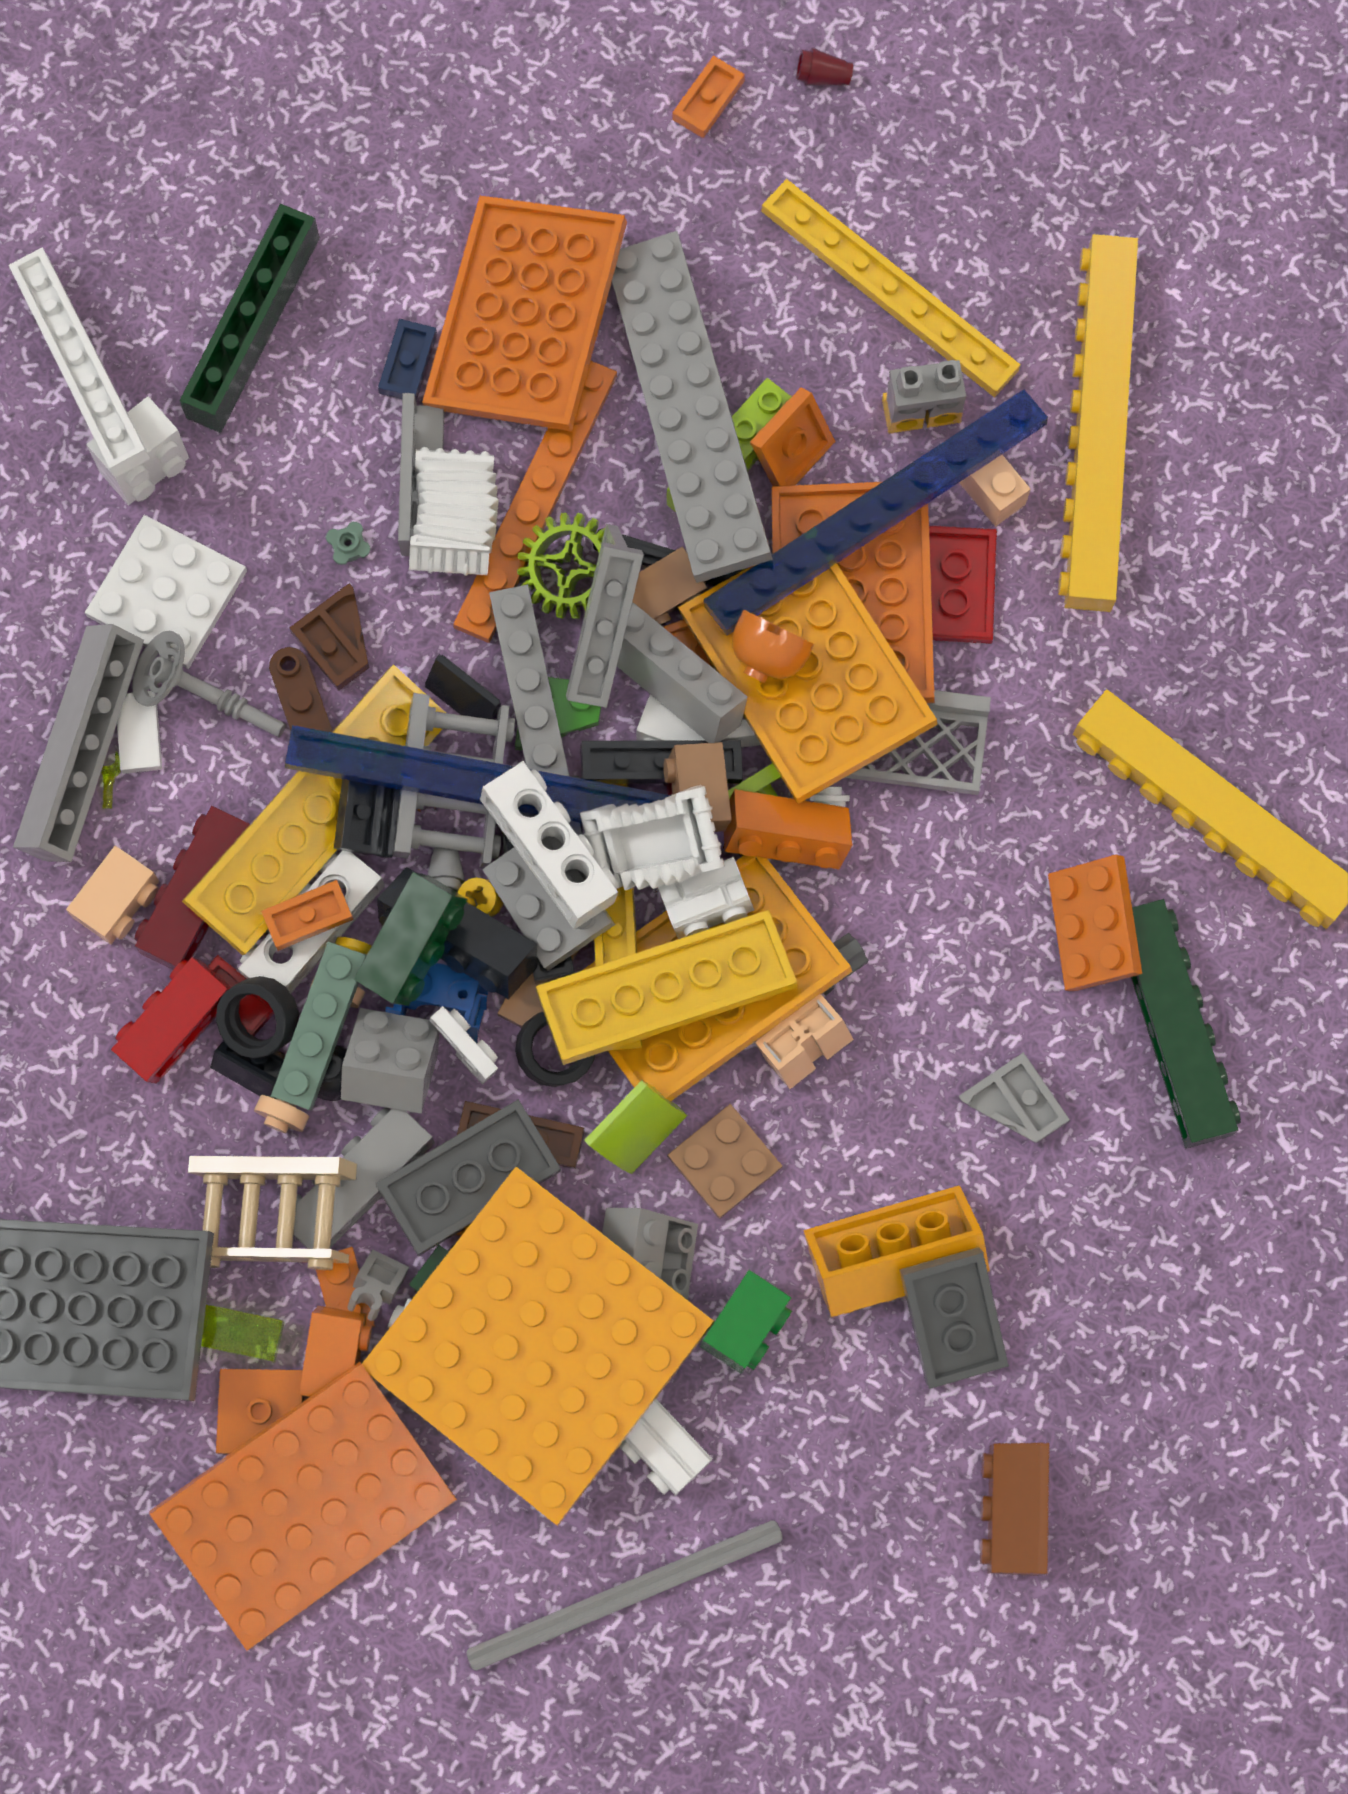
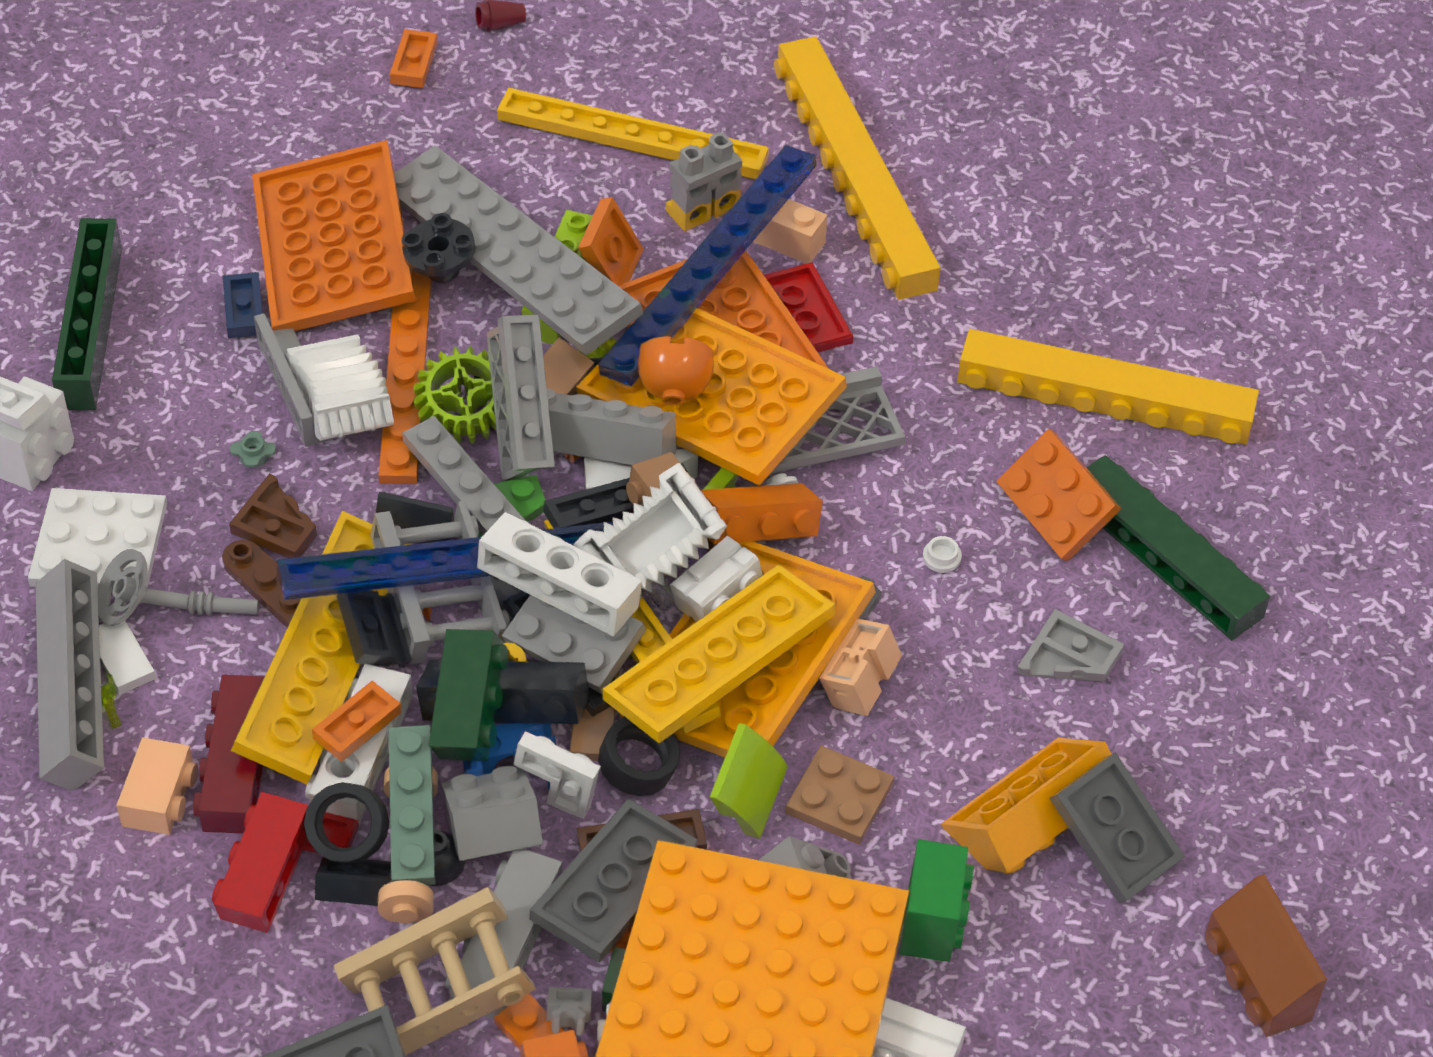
camera: 25 degrees left, 25 degrees down
(614, 381) = (439, 248): none -> black plate
(951, 938) = (942, 554): none -> white plate

